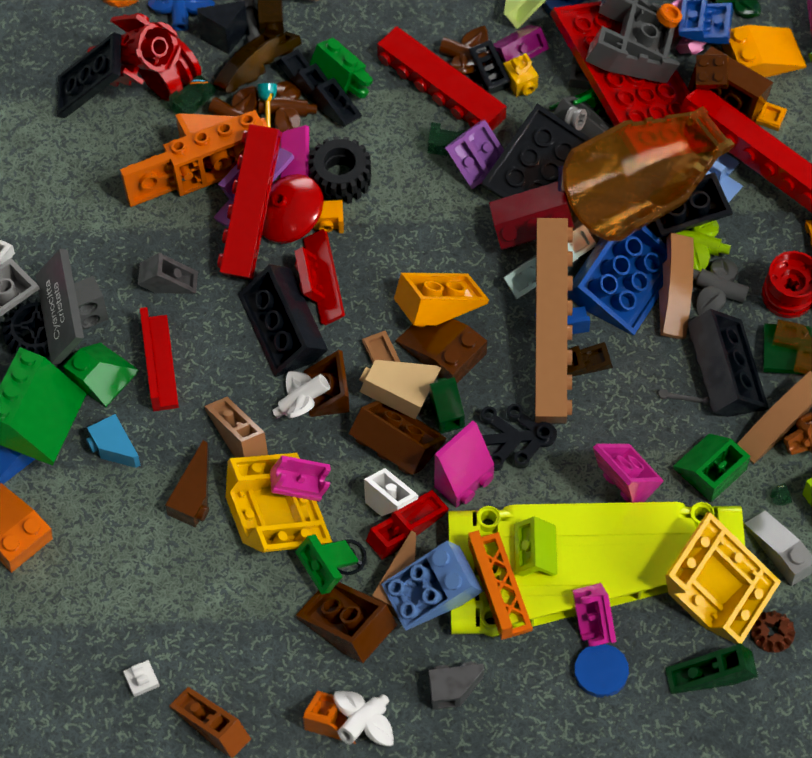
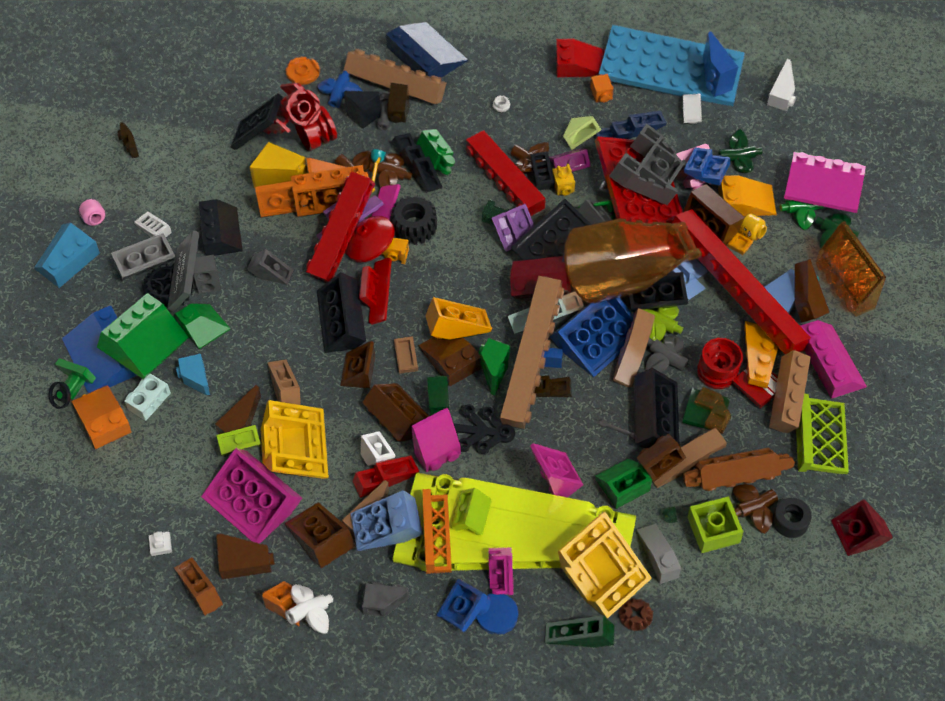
camera: 15 degrees right, 5 degrees down
(65, 488) = (150, 399): none -> light aqua brick
(81, 233) = (220, 227): none -> black slope
(136, 134) = (276, 165): none -> yellow slope
(159, 361) = (244, 324): red fence -> none
(192, 96) = (327, 151): clear green leg -> none
(204, 519) = (242, 439): none -> lime panel
(241, 590) = (251, 496): none -> dark pink slope
(250, 60) = (373, 135): dark brown slope -> none
(256, 671) = (242, 557): none -> reddish brown slope
(299, 478) = (316, 425): dark pink hinge -> none
(300, 392) = (338, 365): white plant -> none
(324, 560) = (315, 486): green piece -> none
(399, 384) = (408, 375): tan slope -> none
(504, 344) = (494, 362): none -> green slope
(559, 670) = (463, 605): none -> blue slope
(576, 117) = (591, 214): light grey bush -> none
(669, 15) = (680, 157): orange tile -> none
(712, 71) = (699, 200): reddish brown piece -> none
(753, 422) = (661, 457): none -> reddish brown slope
(784, 91) = (753, 227): none -> yellow head

